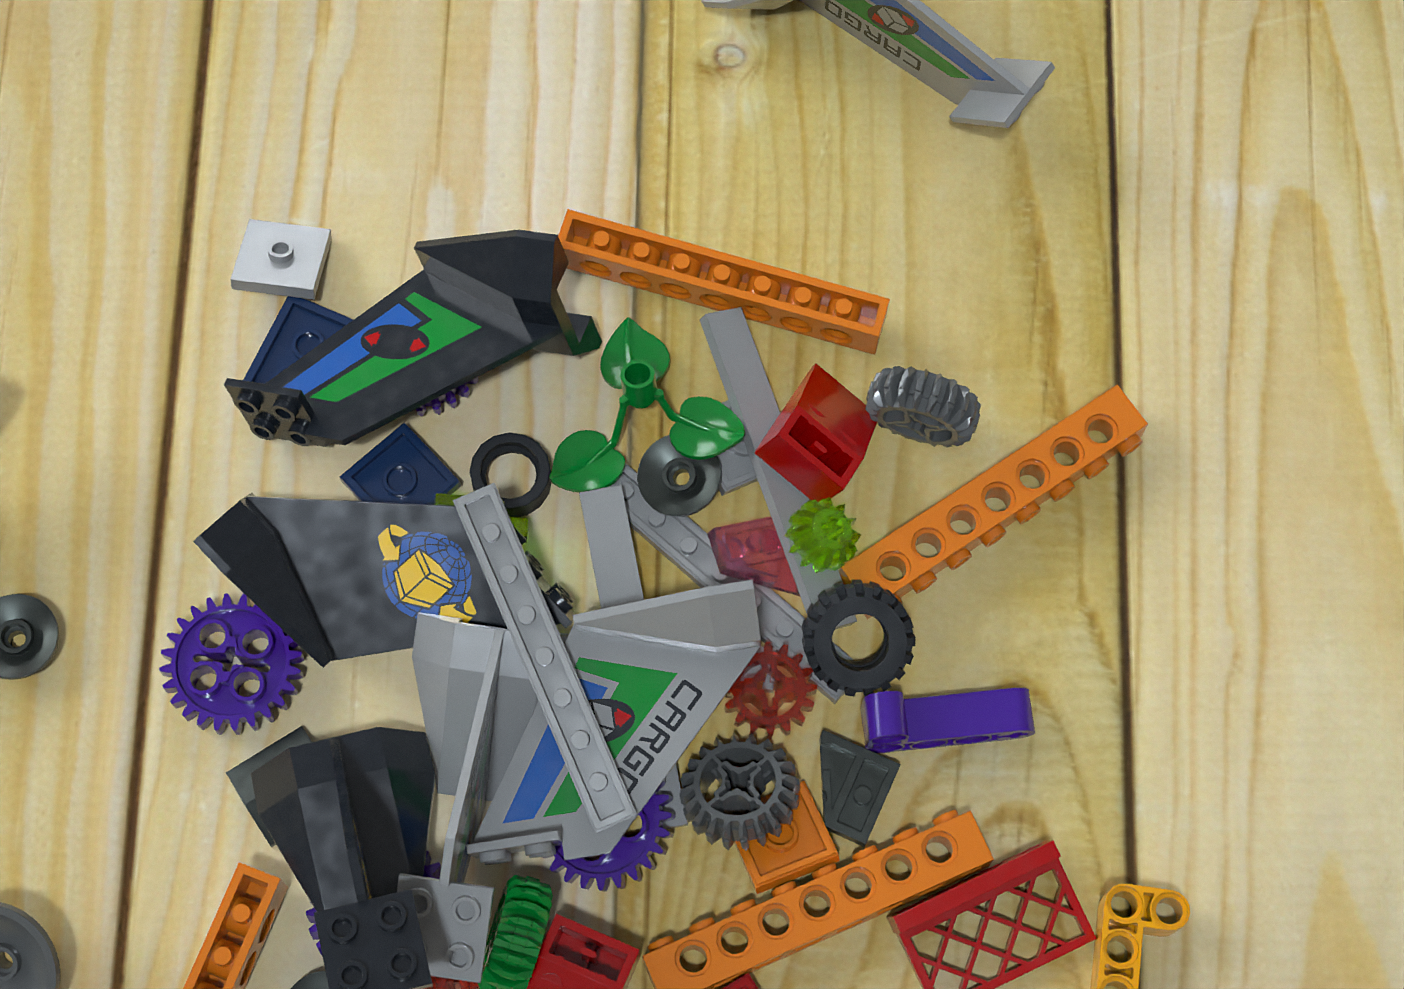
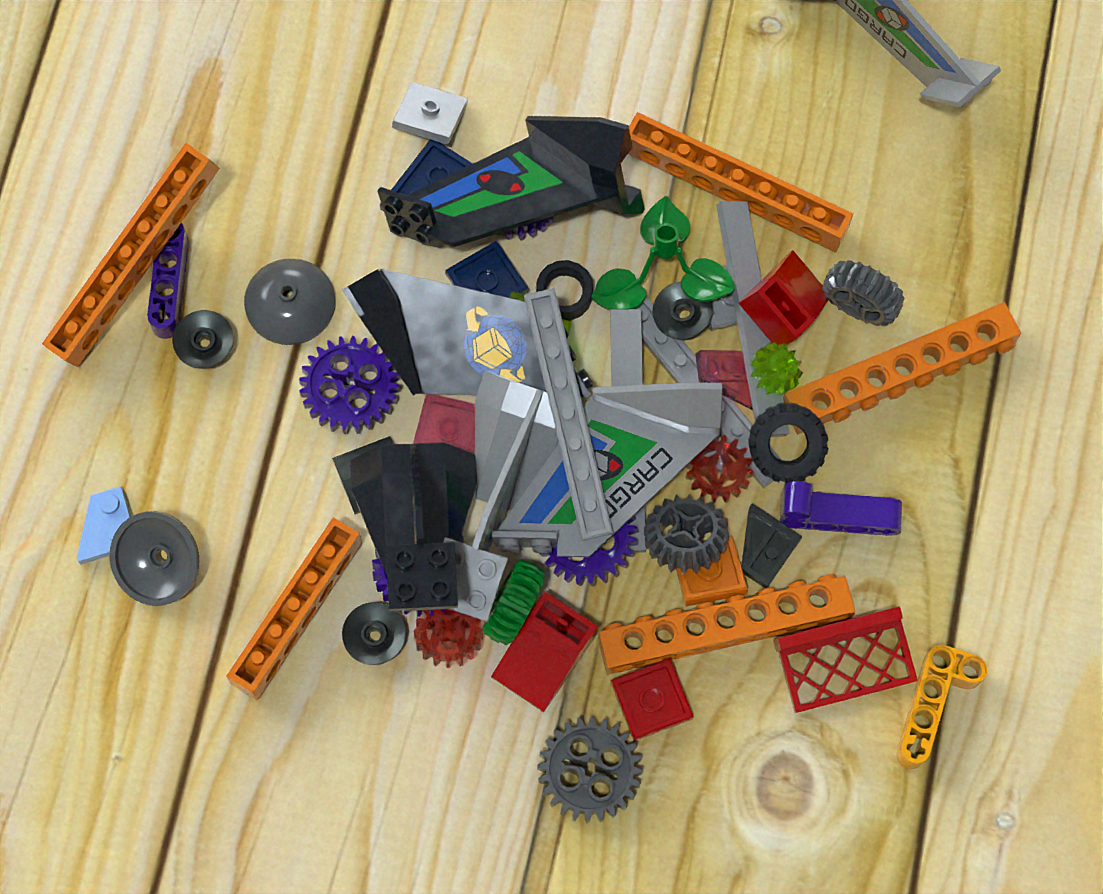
camera: 10 degrees right, 0 degrees up
(144, 579) = (295, 317): none -> dark grey dish
(378, 694) = (447, 421): none -> clear pink plate

